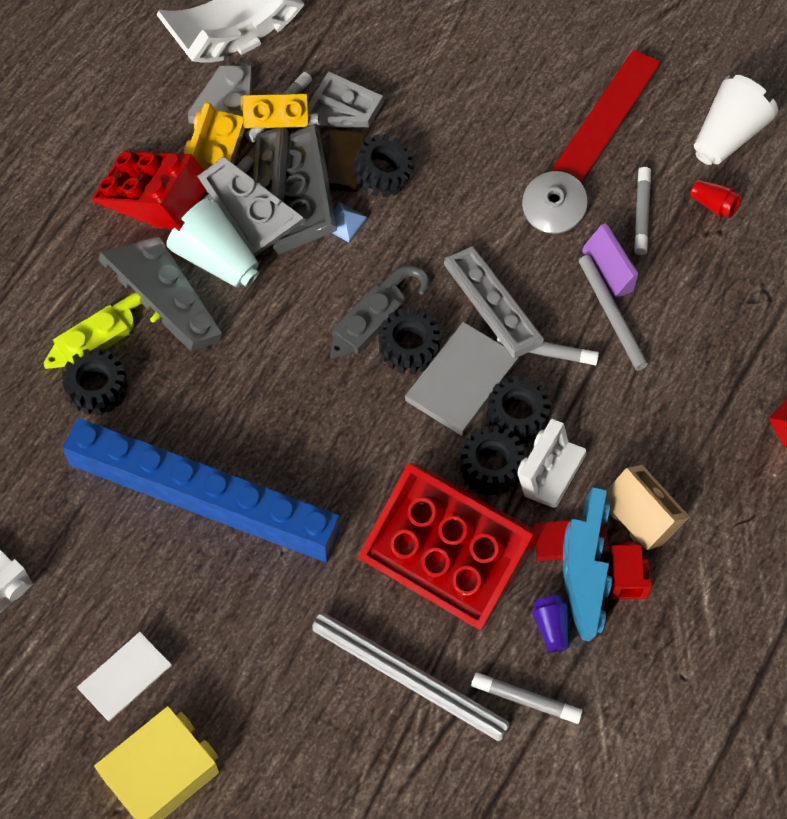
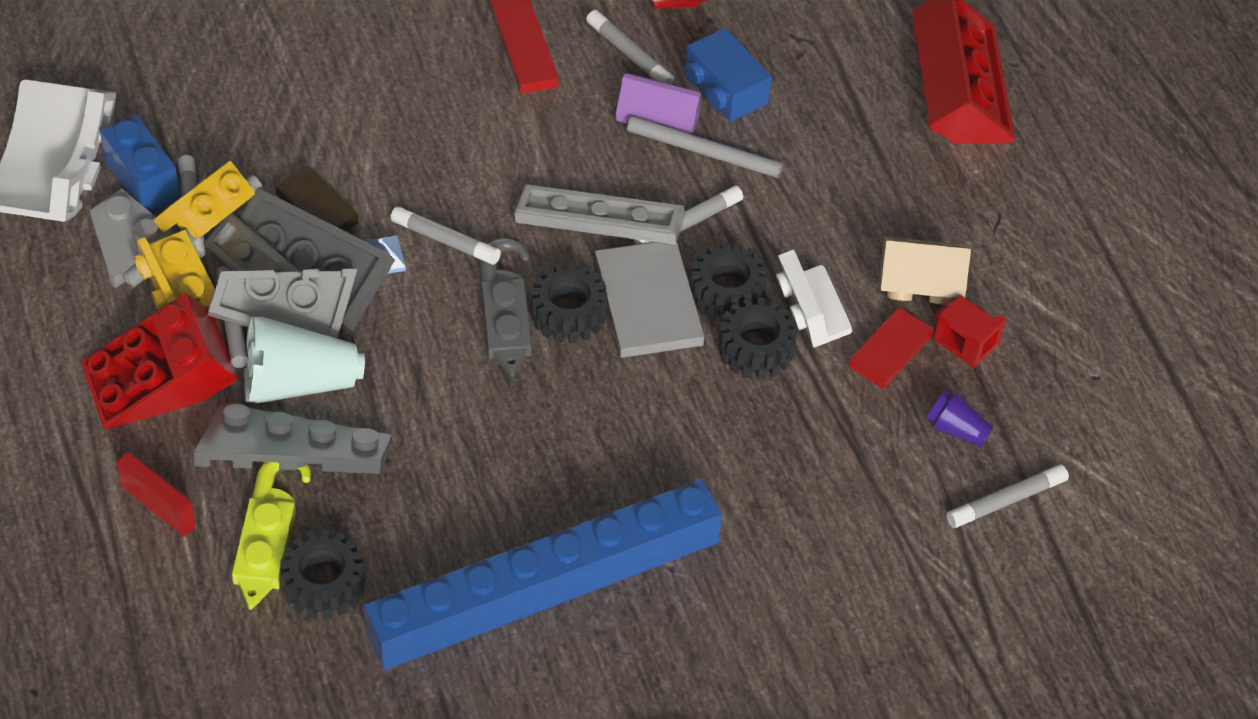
camera: 50 degrees left, 10 degrees down
(66, 260) = (156, 494): none -> red tile
(272, 58) = (140, 164): none -> blue brick
(344, 103) = (260, 150): light grey wing -> none
(389, 152) = (347, 180): black tyre -> none
(389, 240) = (445, 235): none -> light grey bar
(411, 676) = (899, 563): axle -> none
(448, 545) = (807, 432): red slope -> none
(556, 216) = (546, 110): light grey dish -> none
(585, 578) = (940, 358): dark azure slope -> none
(678, 276) = (727, 75): none -> blue brick

